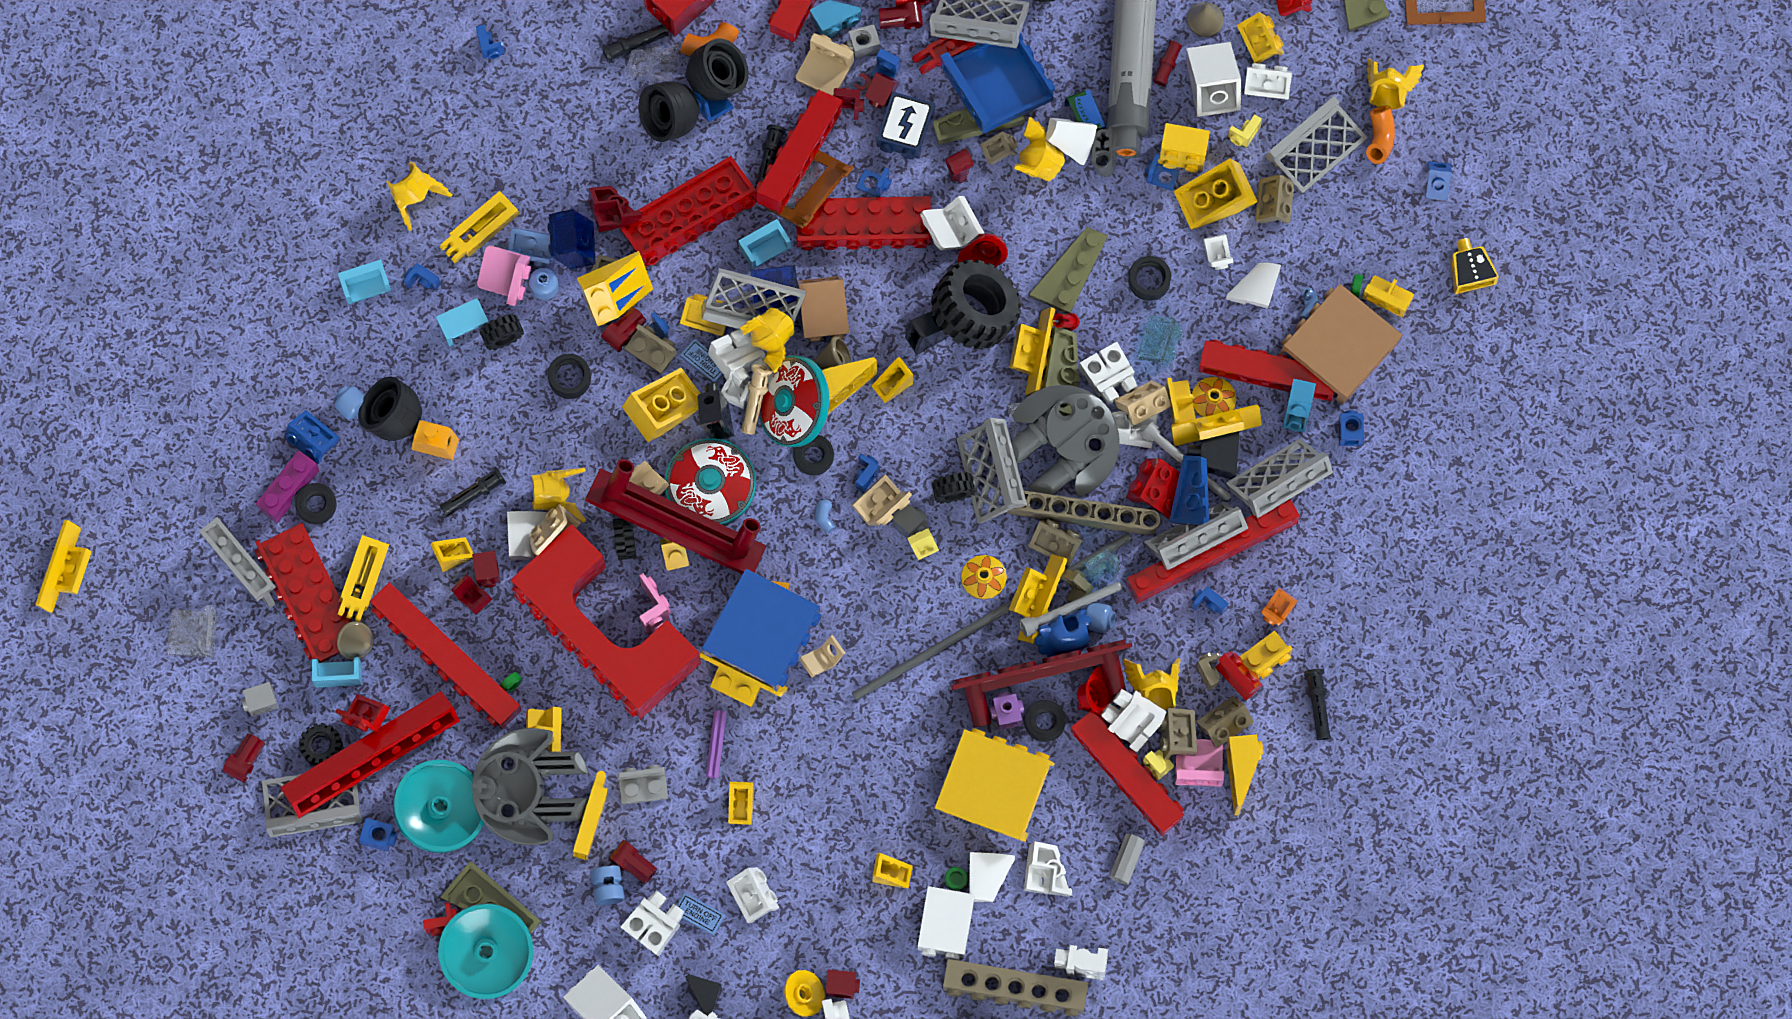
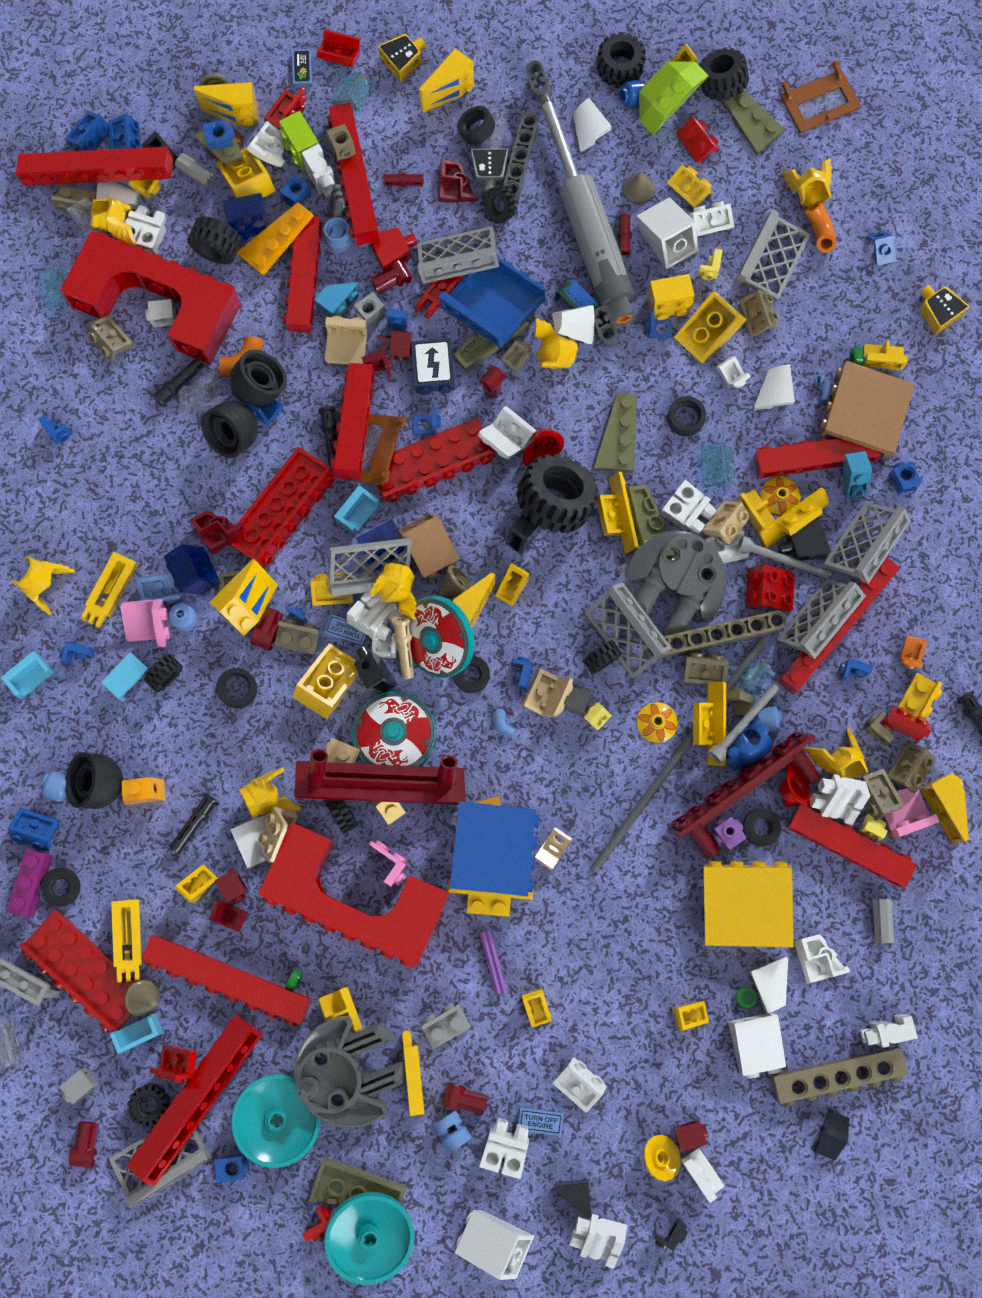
camera: 20 degrees left, 5 degrees up
(1068, 321) = (637, 478): red pin -> none
(1191, 494) = (803, 584): blue wing -> none

